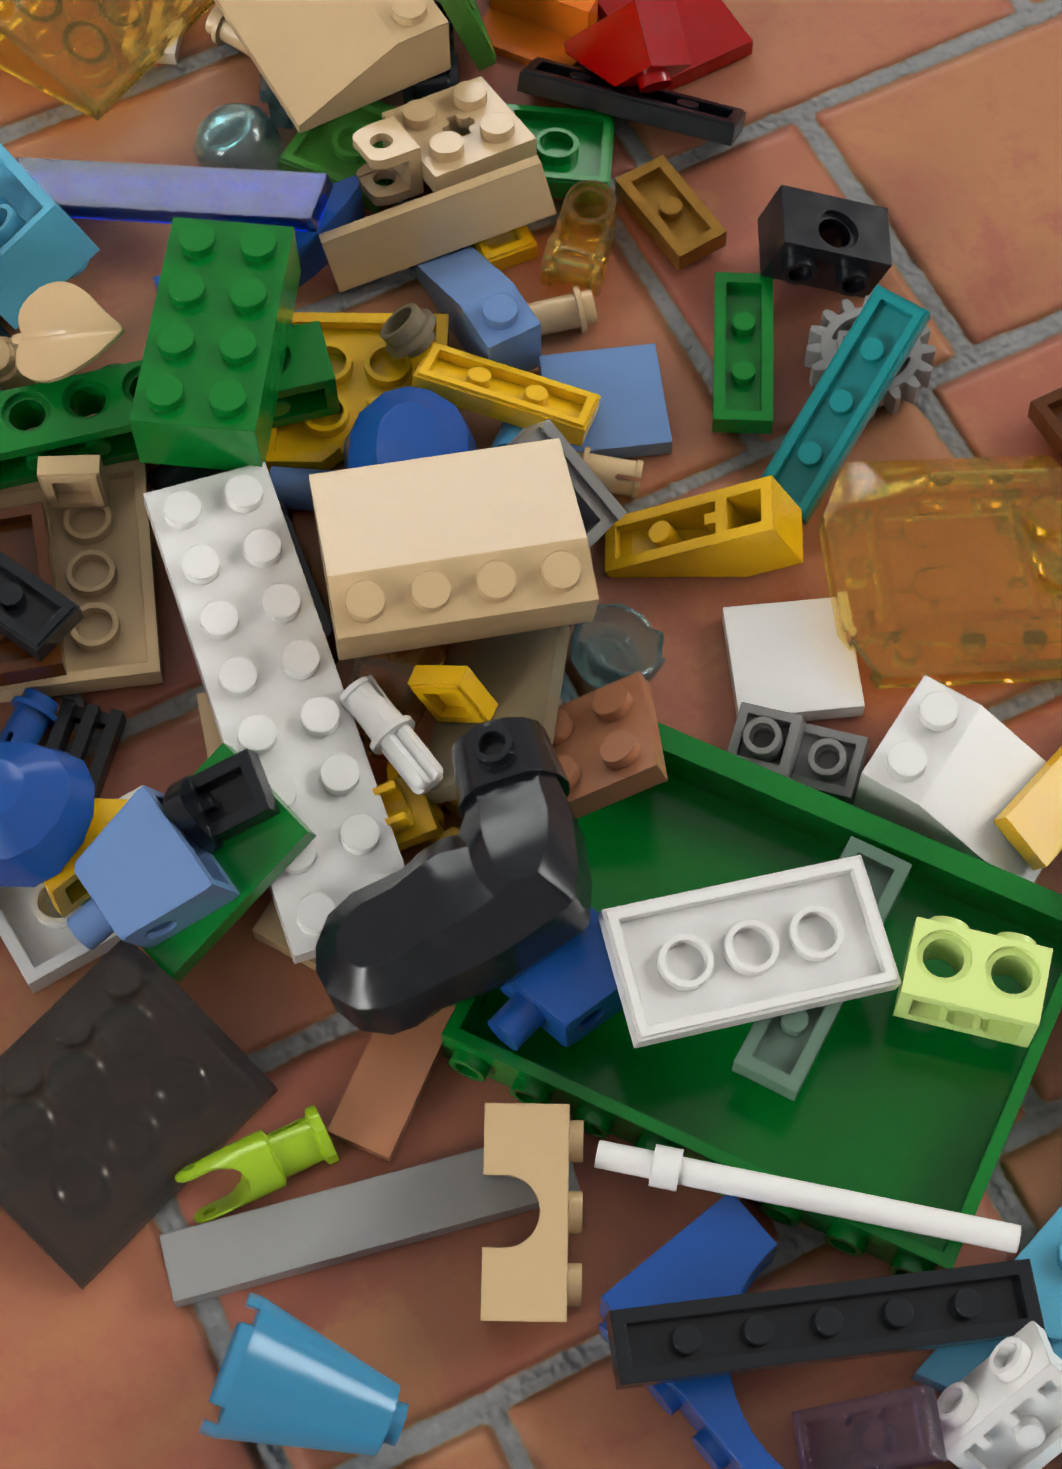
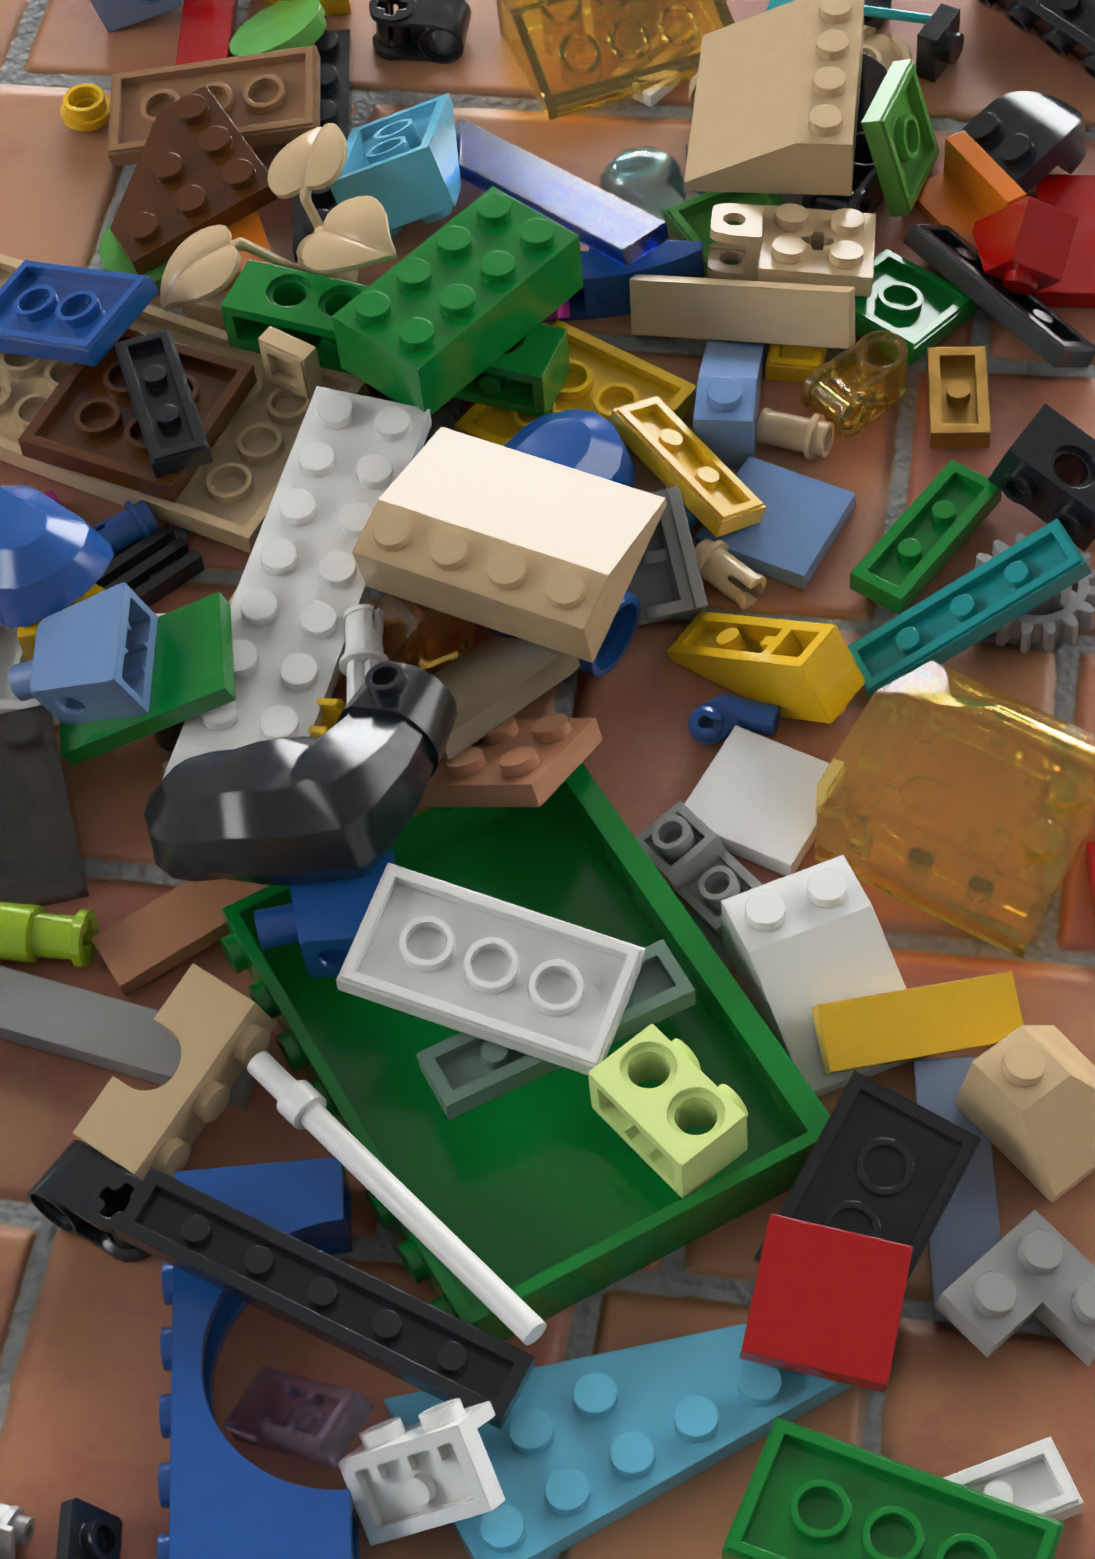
camera: 40 degrees right, 10 degrees down
(221, 800) = (177, 631): black tile -> none
(408, 331) = (643, 379): dark tan plate -> none
(452, 693) = (435, 653): yellow tile -> none
(525, 1363) = (87, 1198): none -> black piece
(616, 646) = (621, 701): clear light blue hair -> none
(706, 599) = (718, 717): none -> blue arm

